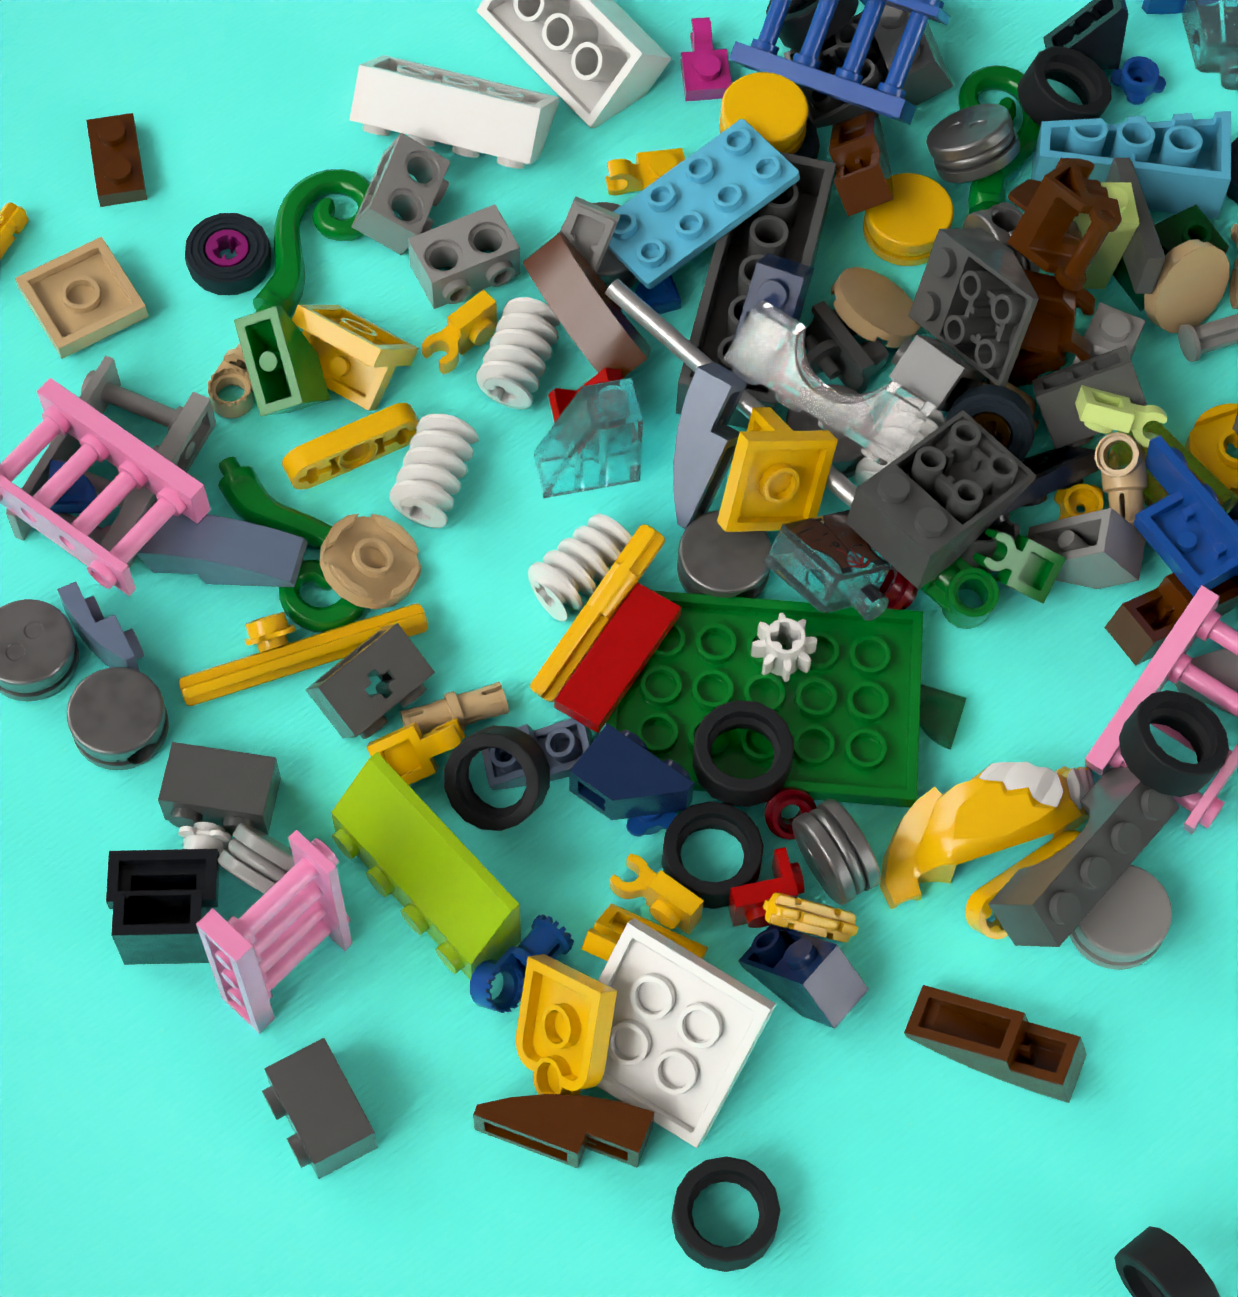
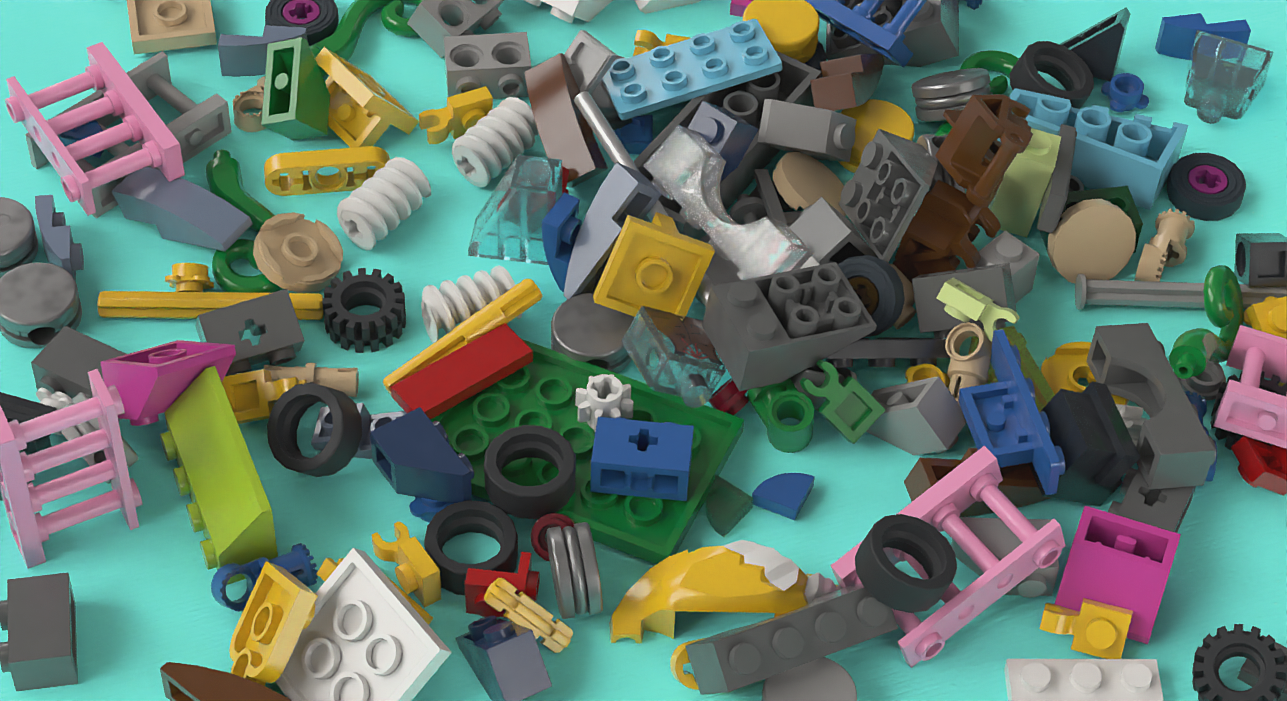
camera: 20 degrees right, 15 degrees down
(201, 322) = (247, 54): none -> sand blue slope
(312, 771) = (159, 375): none -> dark pink slope
(466, 581) = (364, 329): none -> black tyre
(656, 462) = (559, 236): none -> blue slope
(850, 699) = (641, 458): none -> blue brick
(852, 242) = (807, 130): none -> light grey slope
(993, 681) = (784, 493): none -> blue tile

